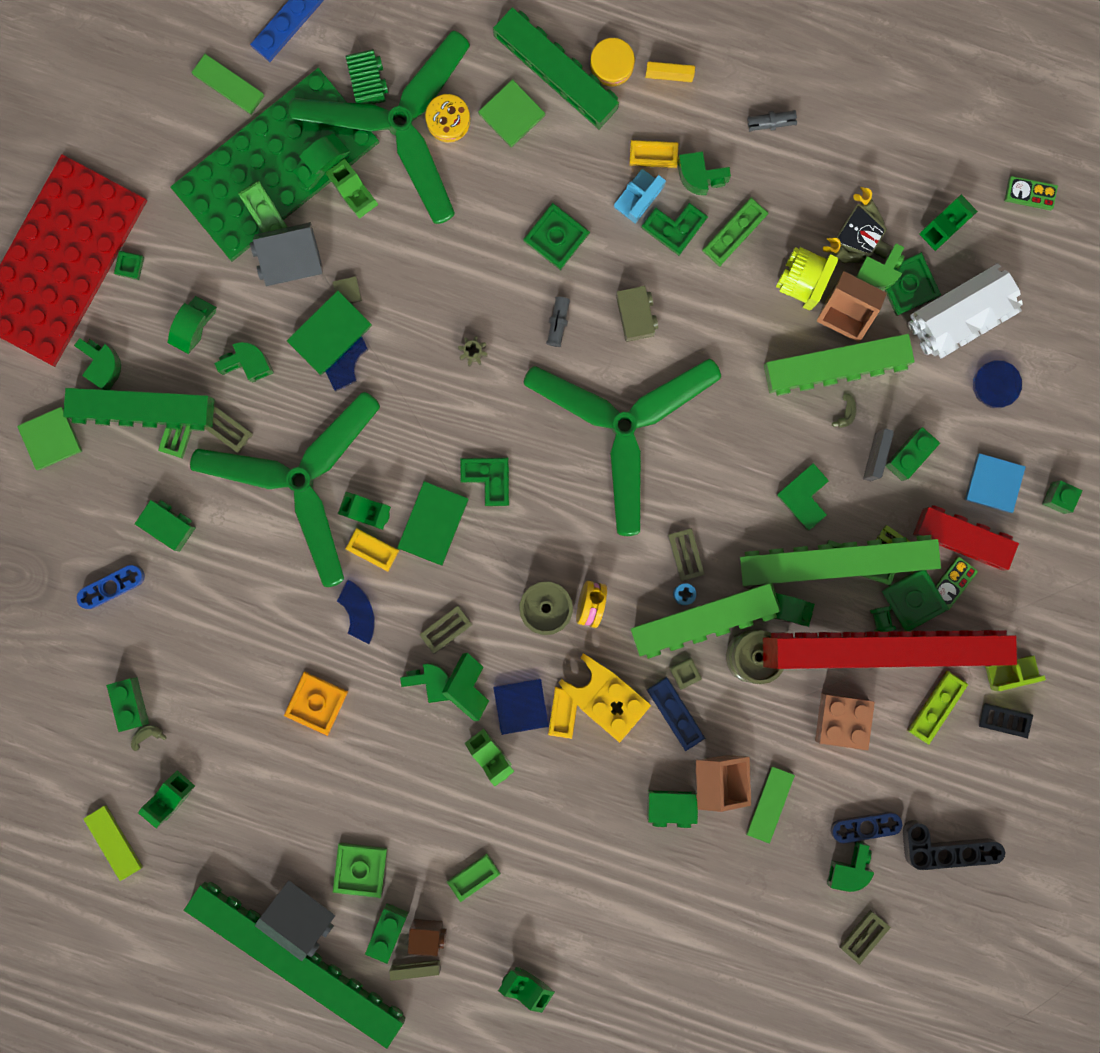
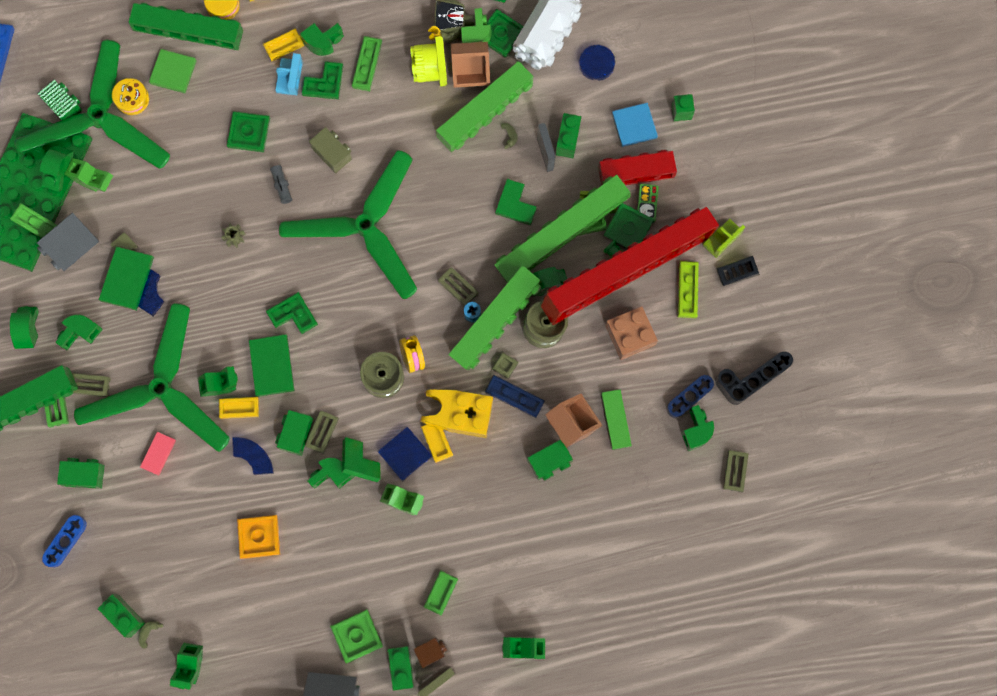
camera: 30 degrees left, 10 degrees down
(259, 549) = (158, 453): none -> coral tile
(415, 614) = (294, 432): none -> green brick

